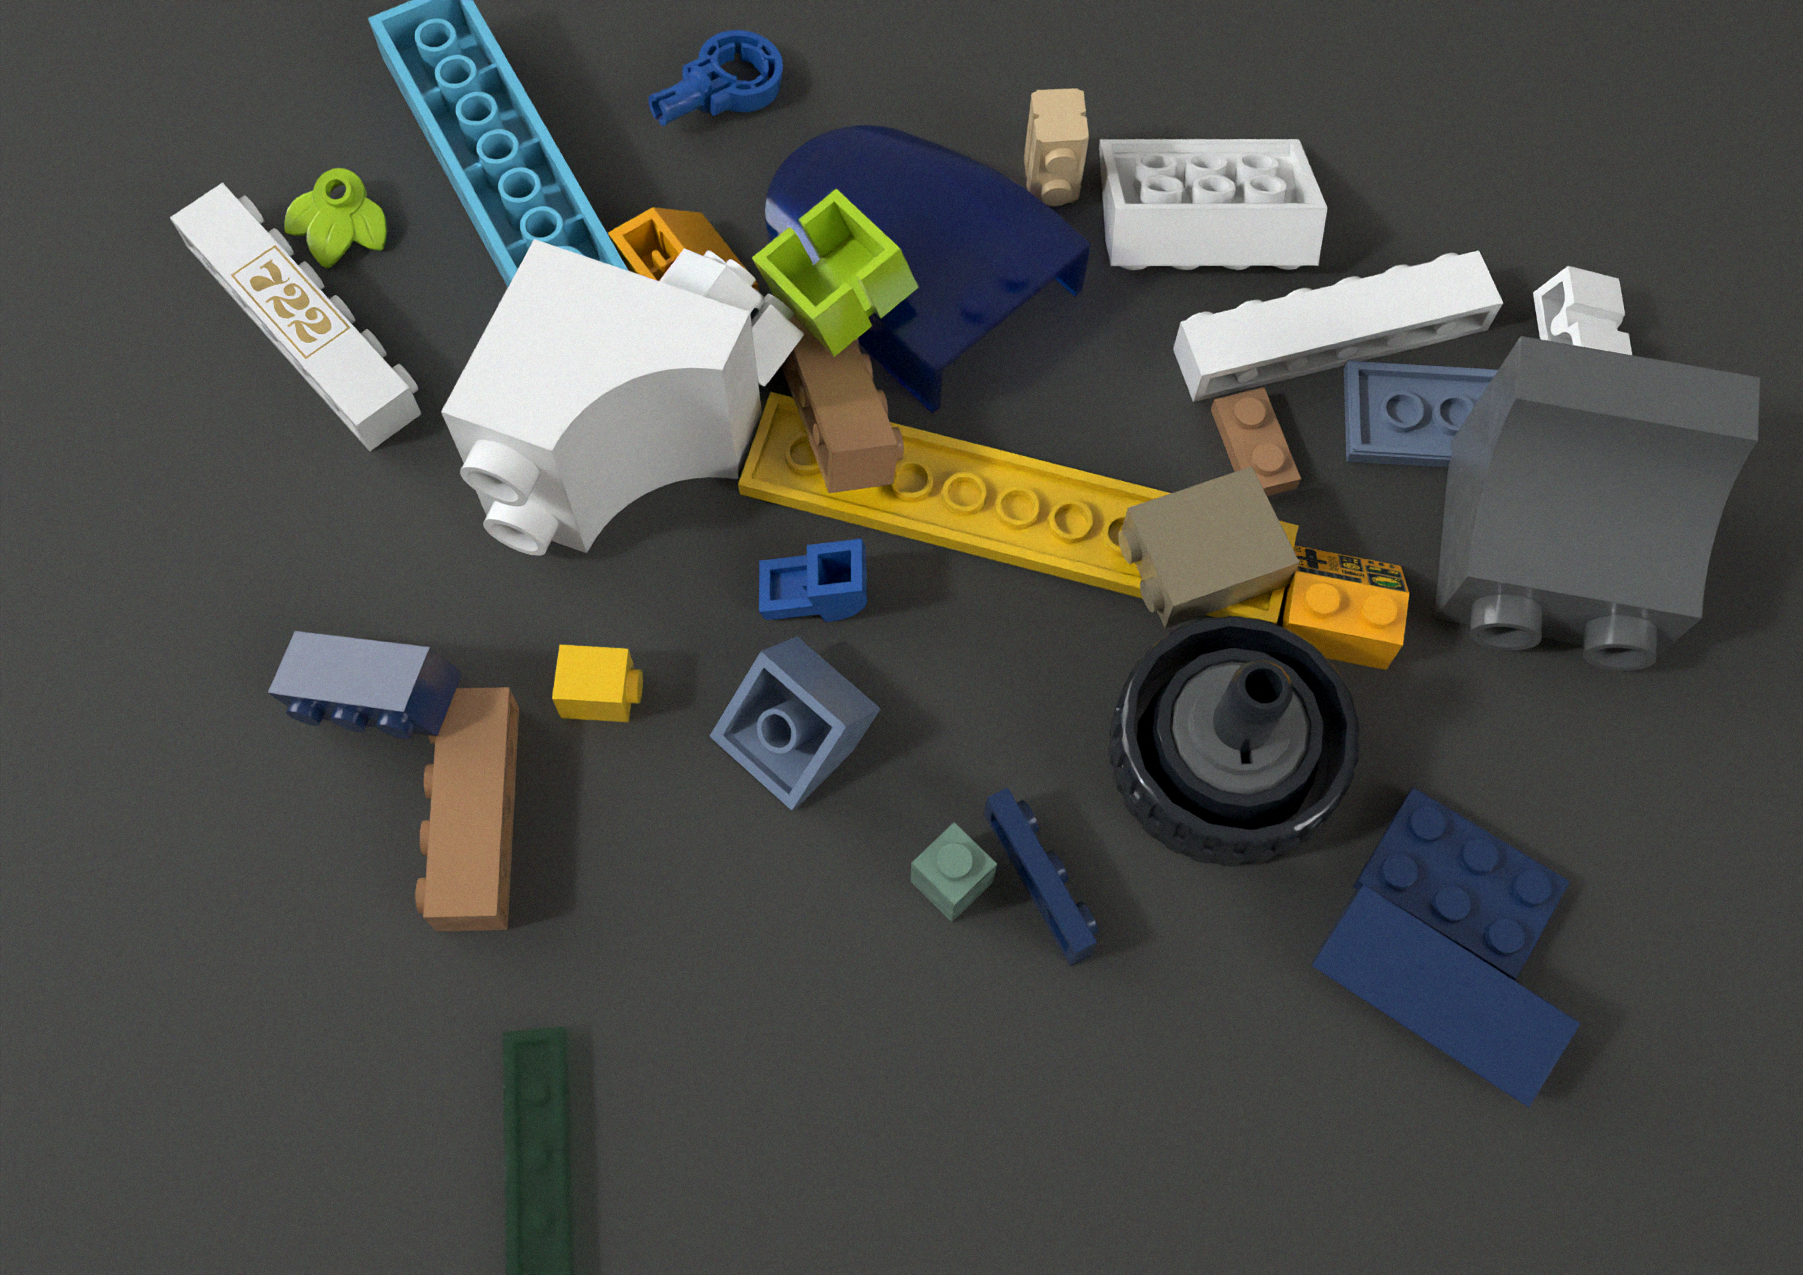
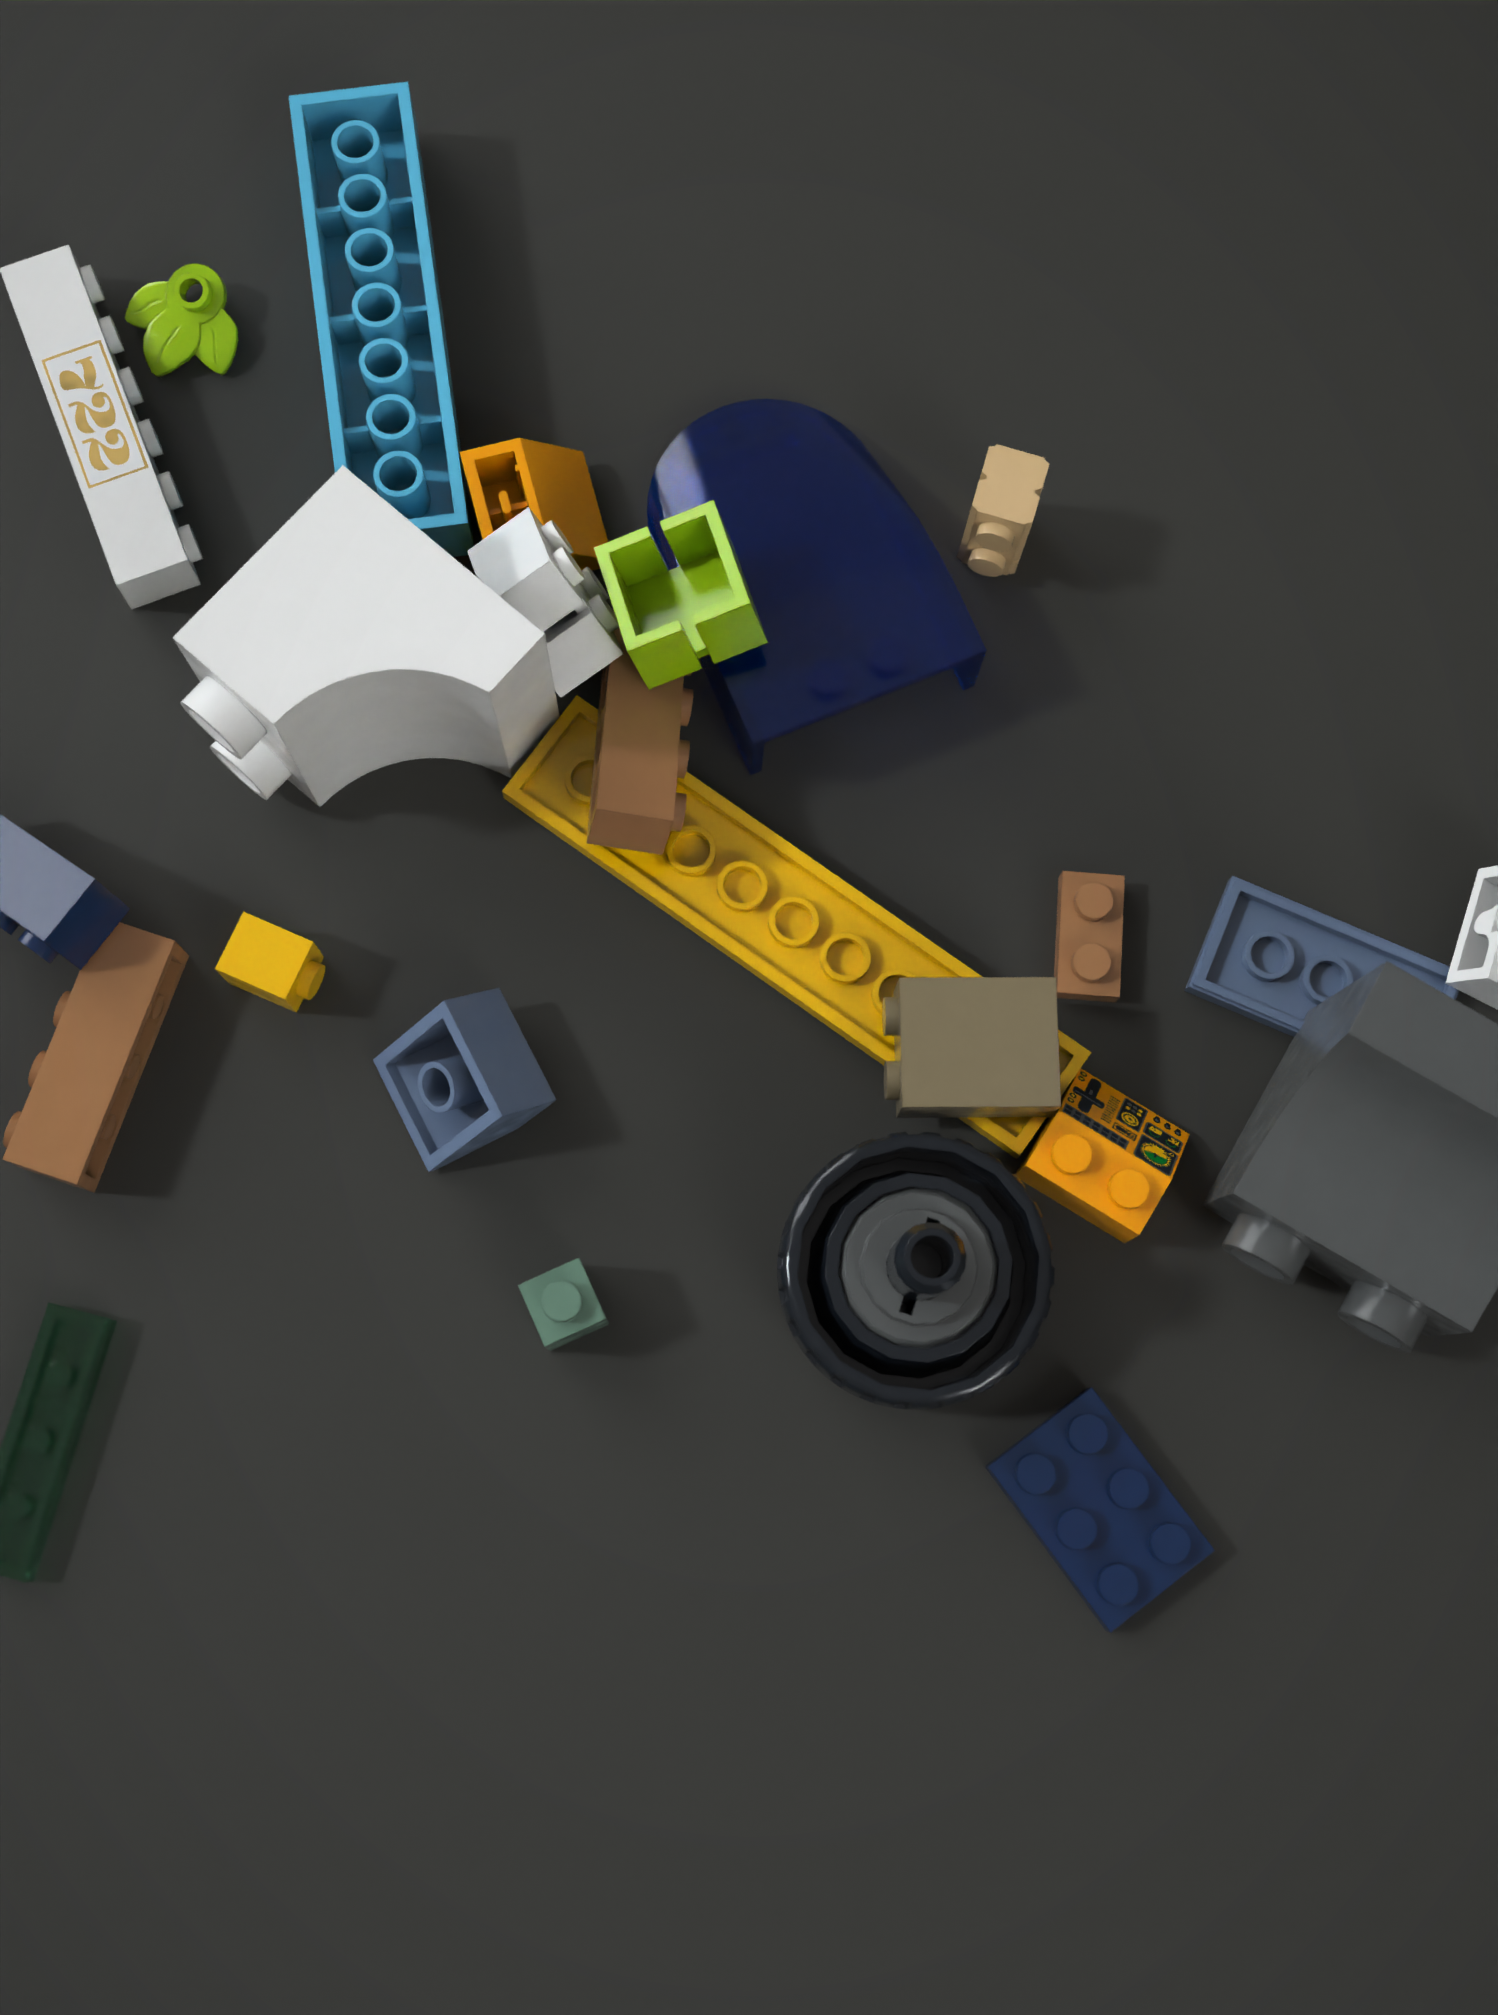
camera: 15 degrees right, 10 degrees up
(712, 89) = (650, 303): blue pin -> none
(823, 582) = (540, 933): blue brick -> none
(1042, 876) = (658, 1340): dark blue plate -> none
(1210, 203) = (1156, 632): white slope -> none
(1336, 325) = (1238, 830): white brick -> none
(1445, 994) = (1023, 1624): dark blue brick -> none

